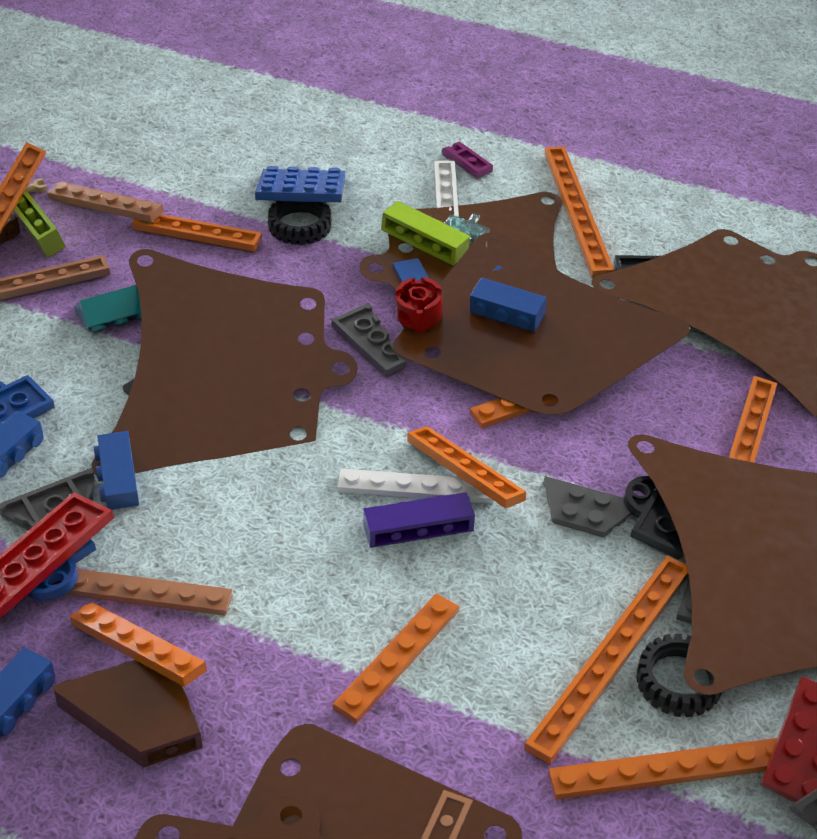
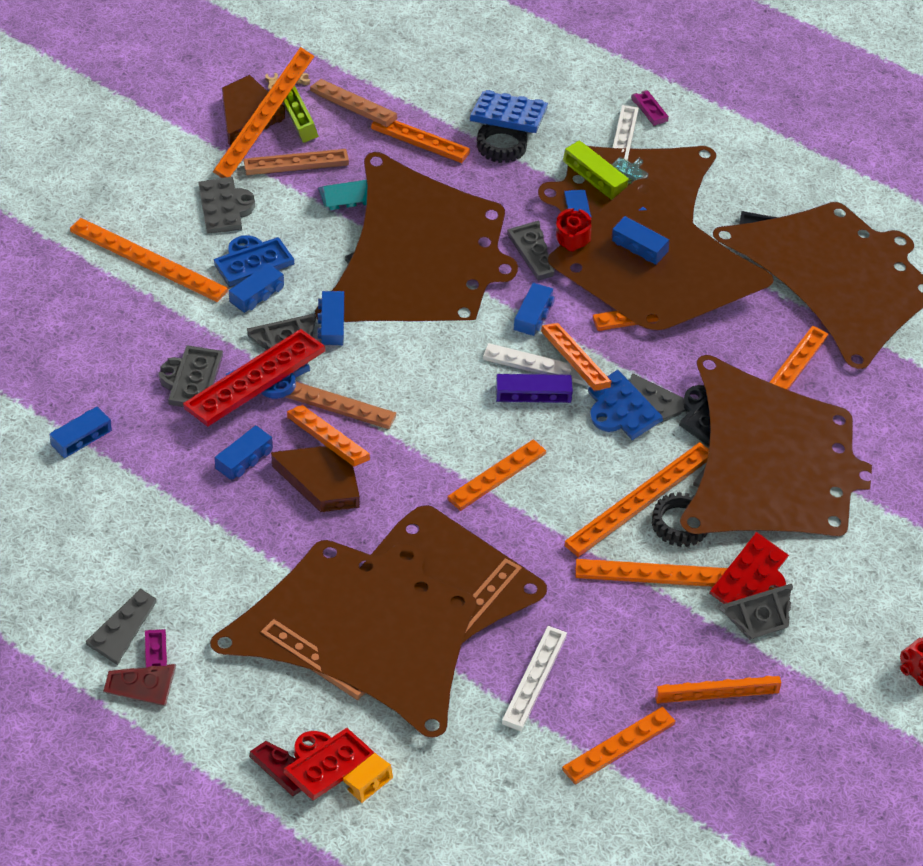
camera: 10 degrees right, 5 degrees up
(391, 414) = (534, 309): none -> blue brick
(548, 526) = (623, 408): none -> blue plate
(578, 211) = (725, 167): orange plate -> none

